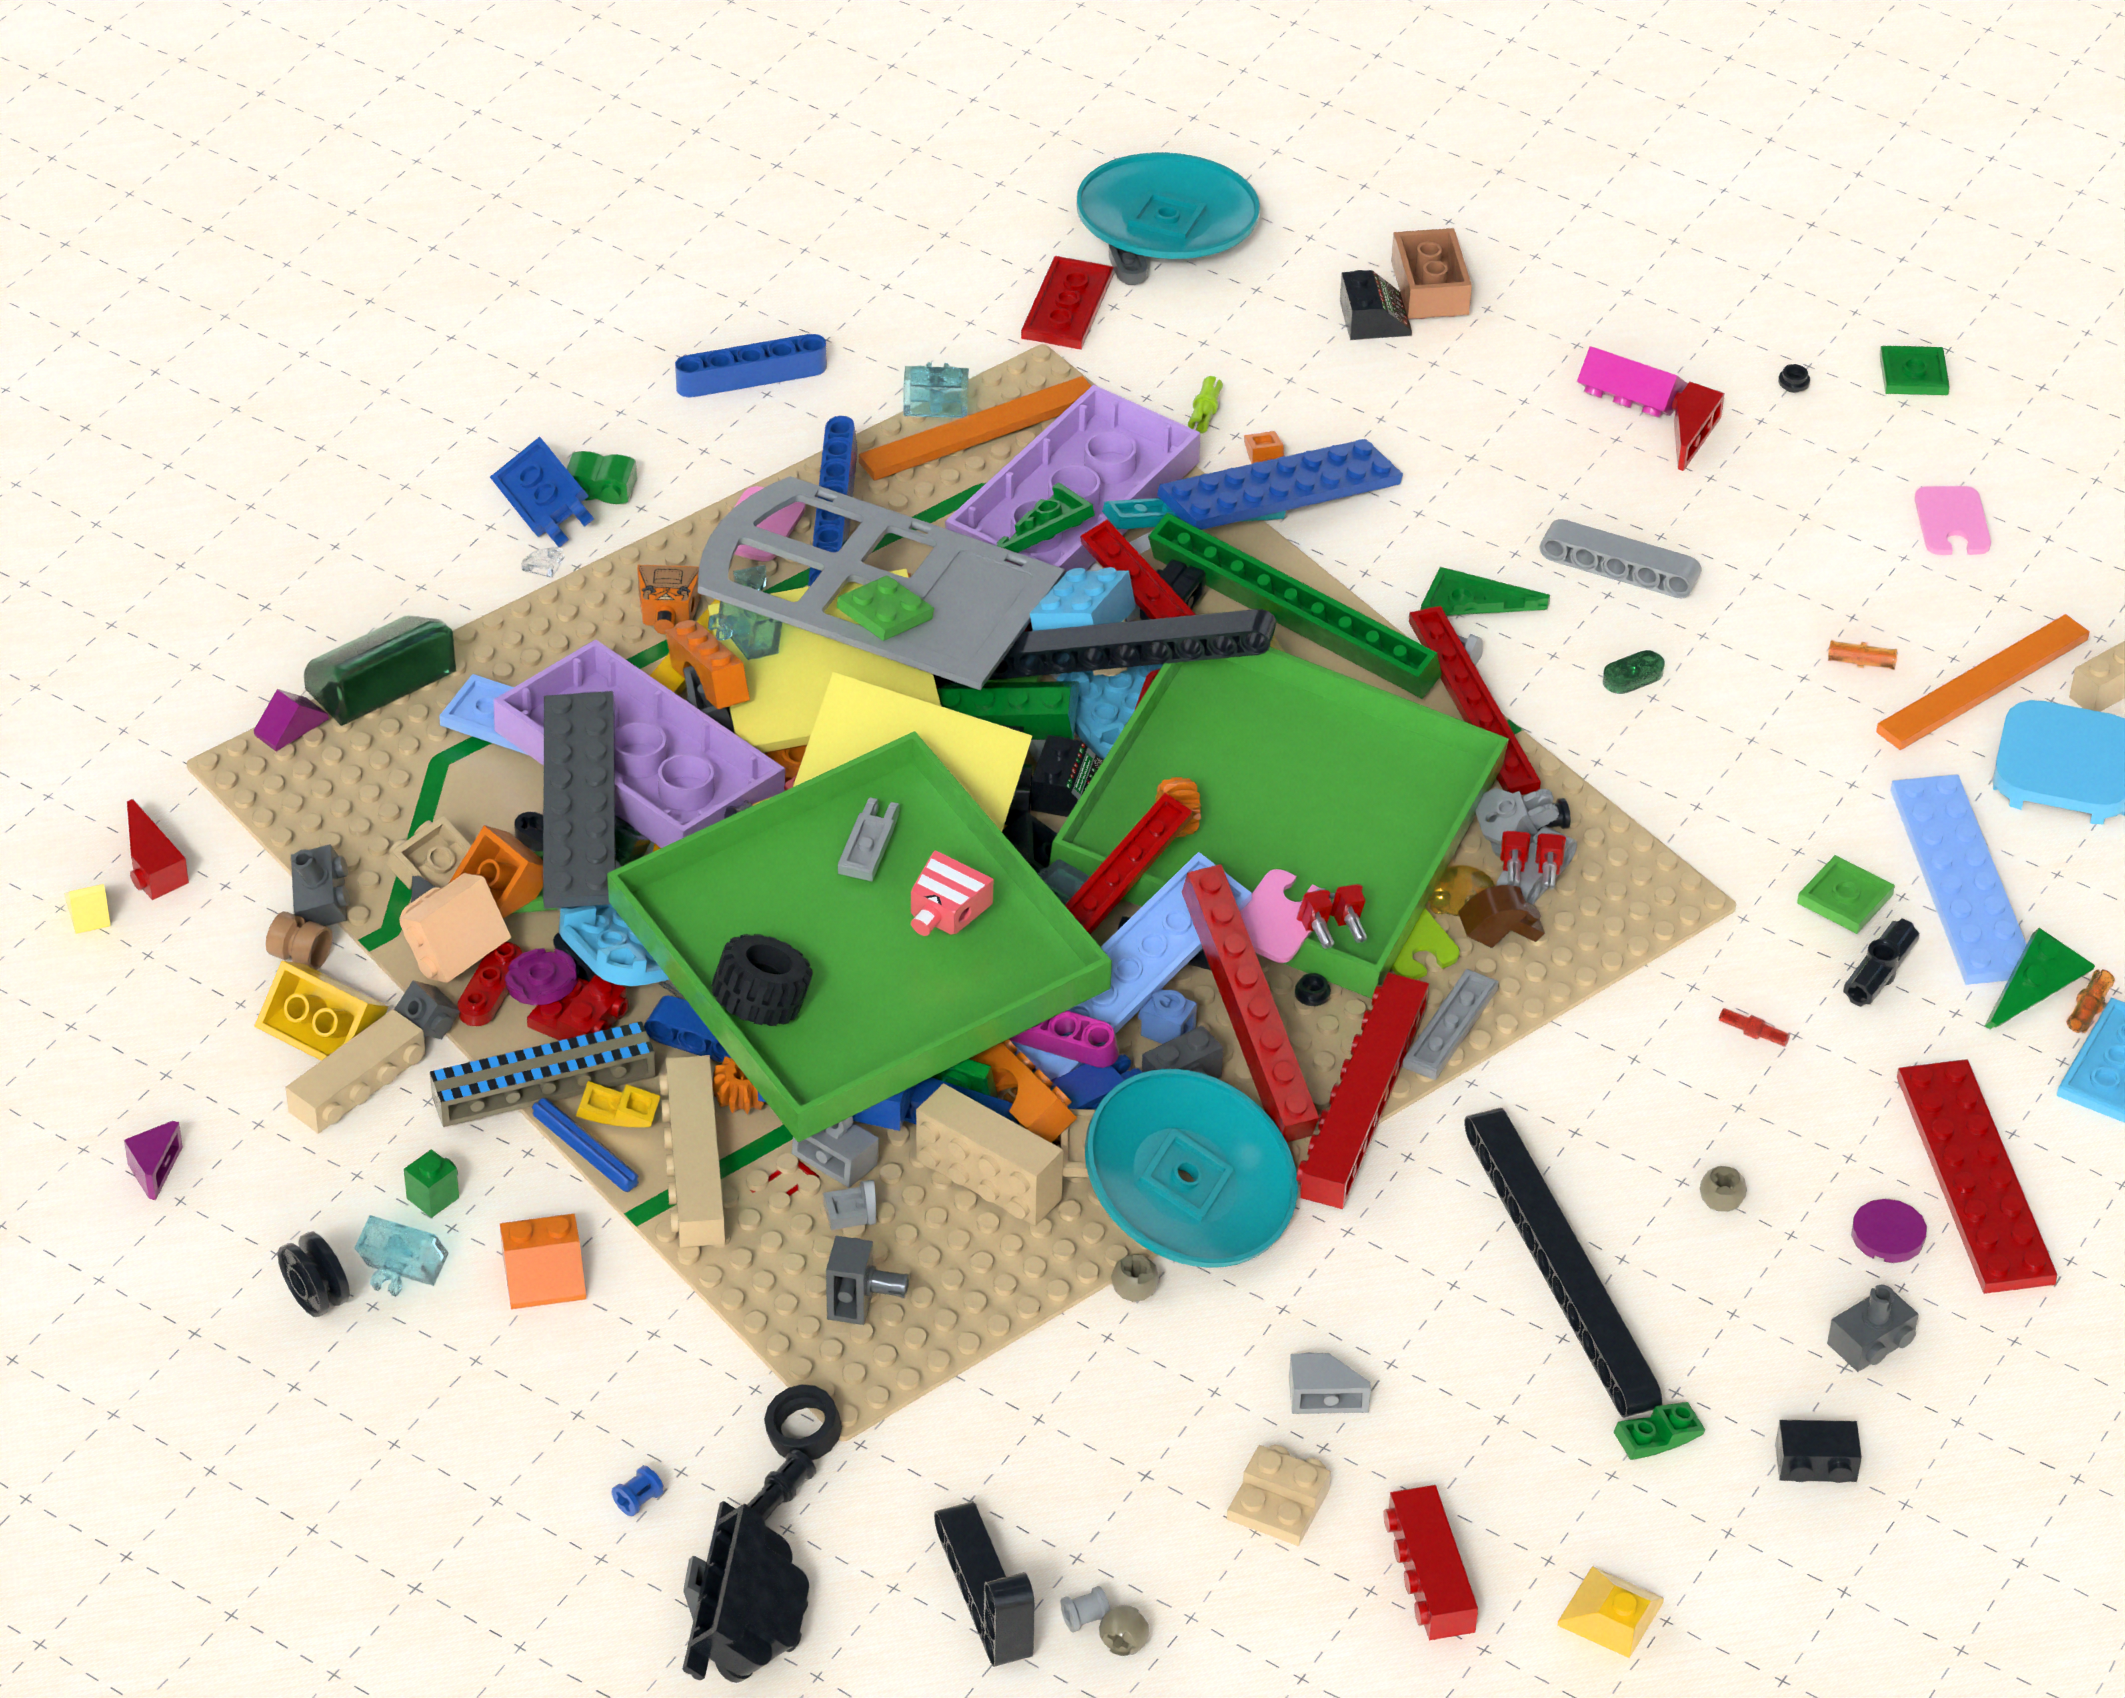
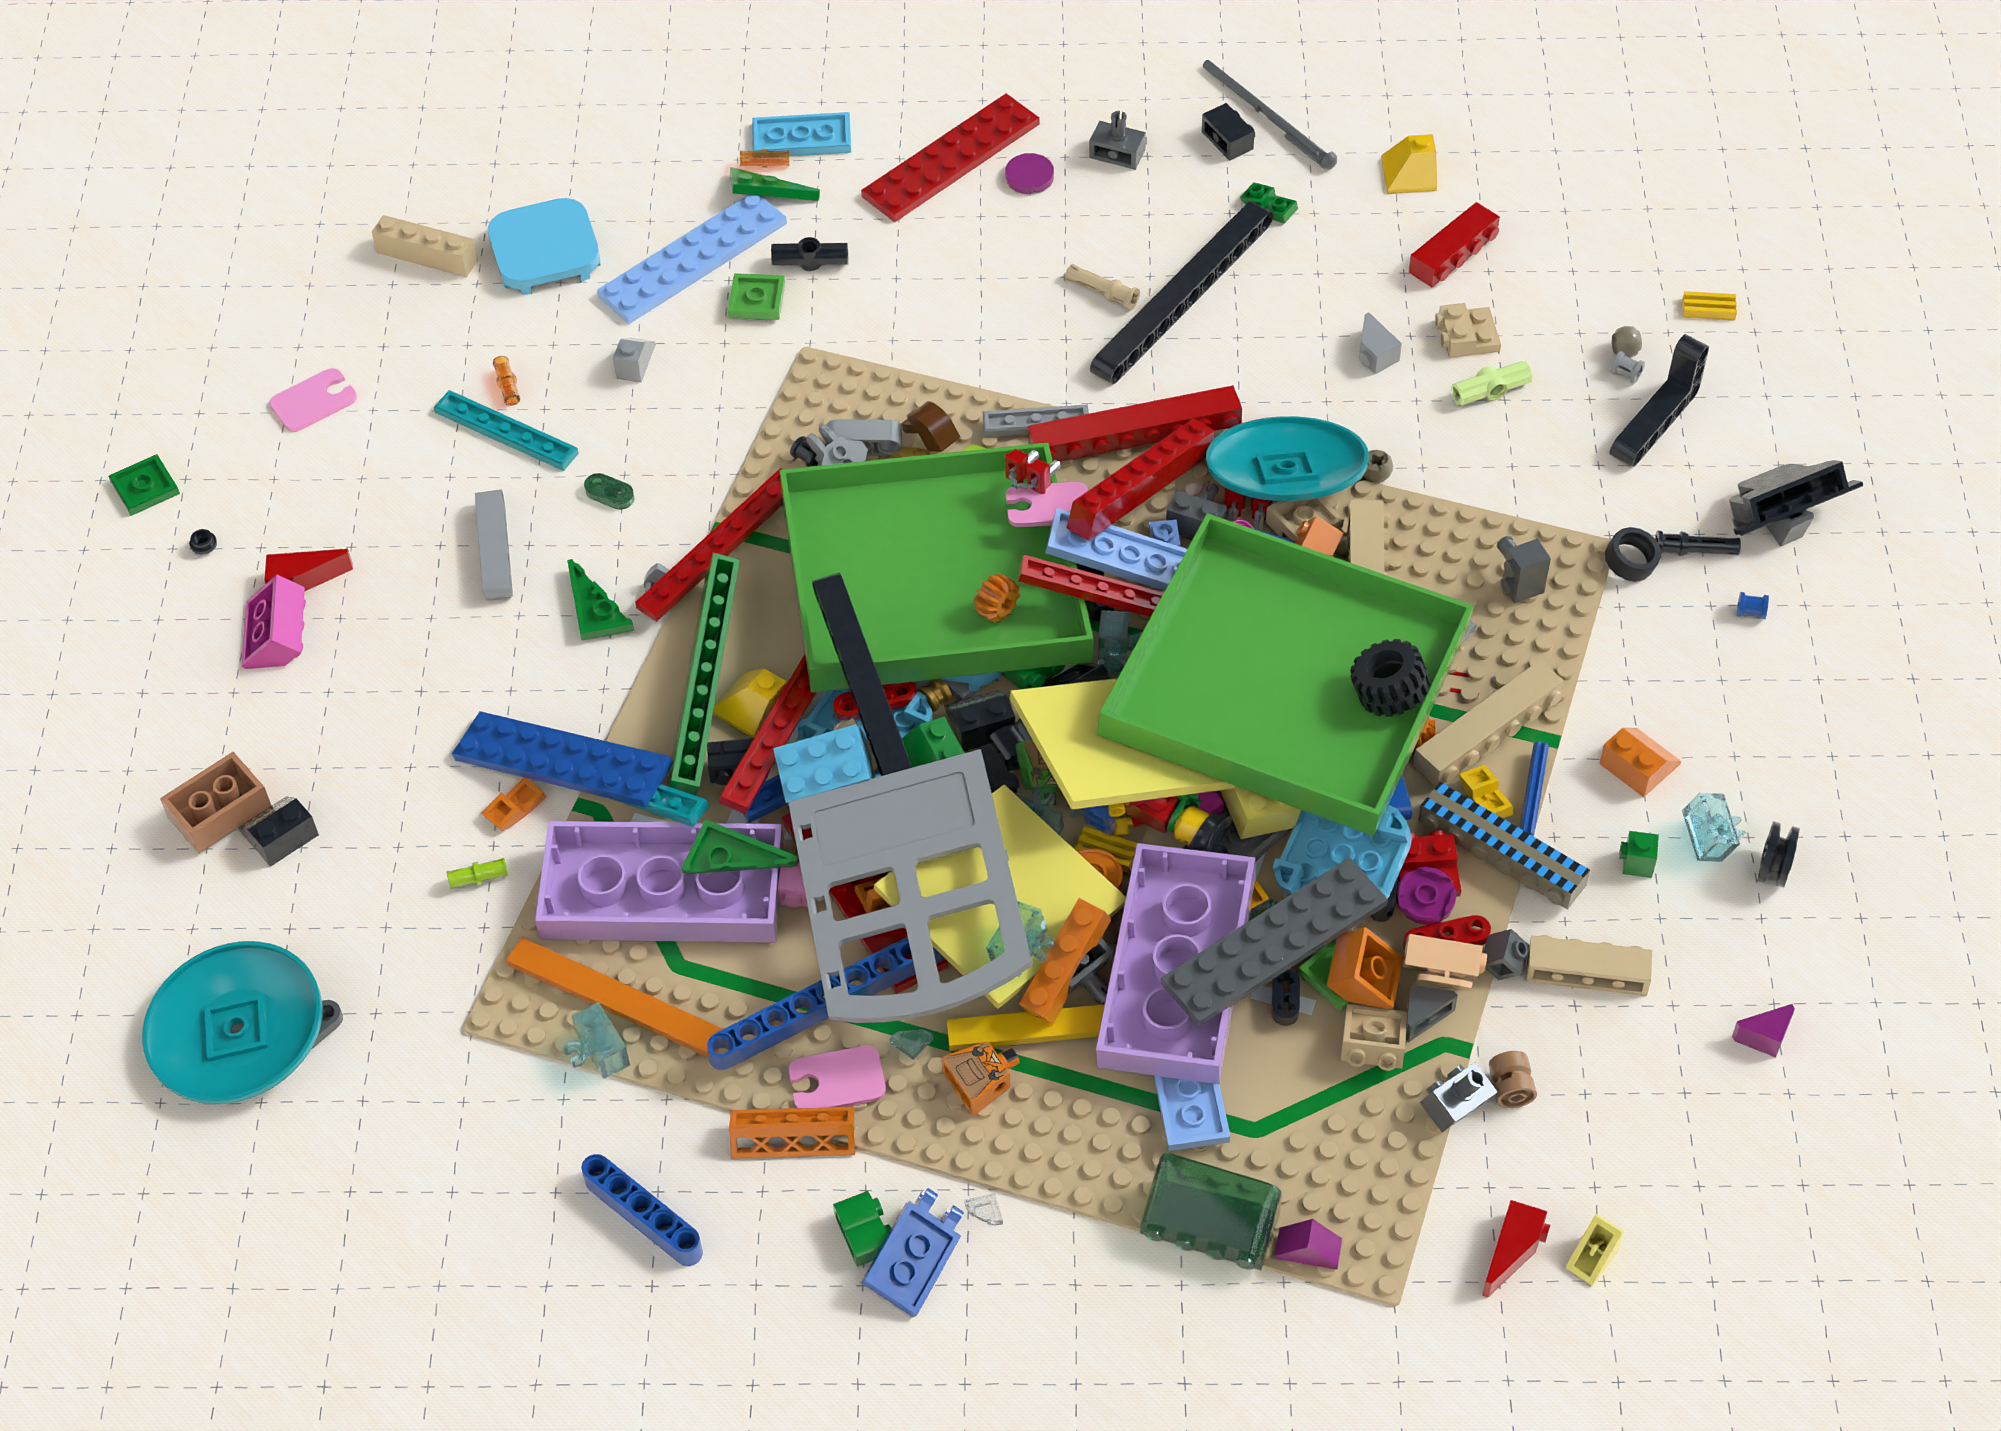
camera: 120 degrees left, 10 degrees up
(315, 1010) = (1560, 1021): yellow slope -> none
(737, 473) = (797, 1122): none -> orange fence
(868, 841) = (1205, 703): light grey hinge -> none
(885, 607) = (950, 845): bright green plate -> none
(948, 895) = (1242, 606): coral torso -> none
(1067, 302) = (394, 1043): red tile -> none
(1172, 1460) = (1491, 382): none -> yellowish green piece
(1548, 854) = (873, 418): red piece -> none
(1614, 1197) = (1112, 289): none -> tan pin
(1691, 1527) = (1324, 159): none -> dark grey bar
(1723, 1188) = (1064, 246): dark tan piece -> none
(1754, 1027) = (911, 292): clear red bar -> none
(1789, 634) = (506, 430): none -> teal tile
(1823, 758) = (632, 358): none -> light grey slope
(1982, 682) = (486, 317): orange tile -> none

